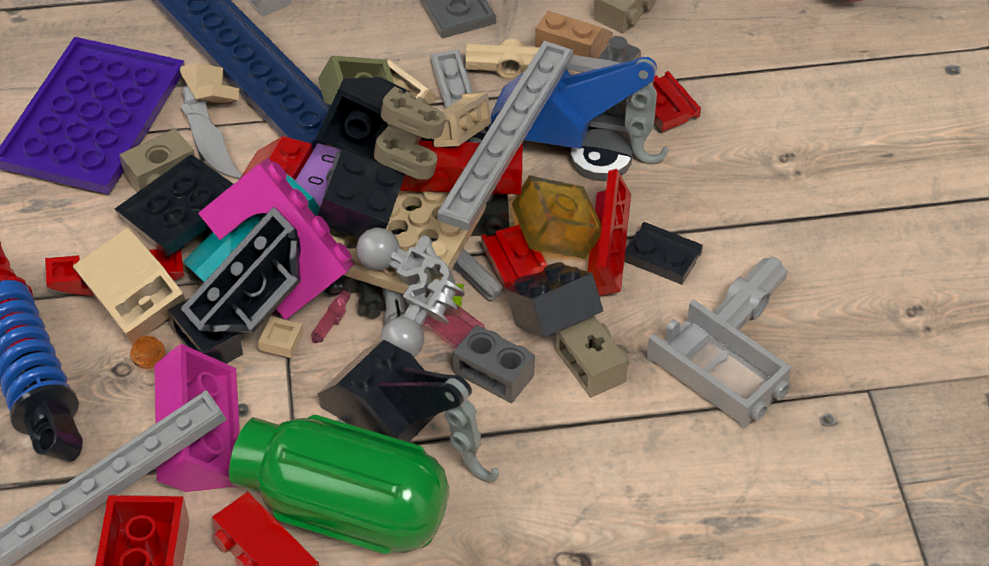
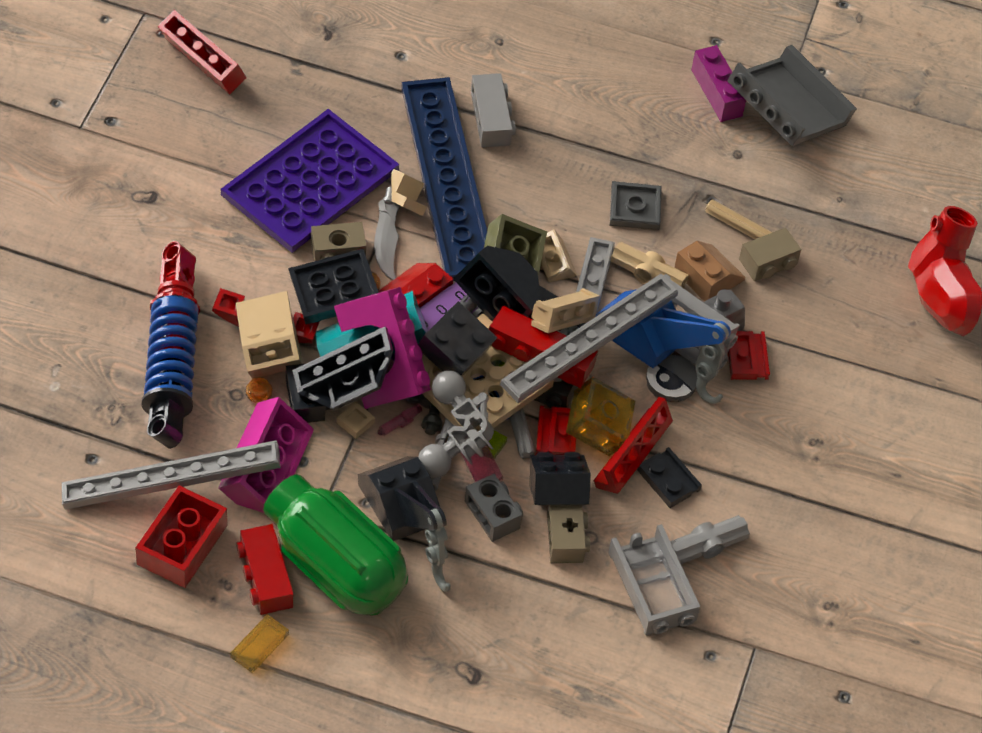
camera: 20 degrees right, 5 degrees up
(407, 123) = (512, 306): dark tan piece -> none

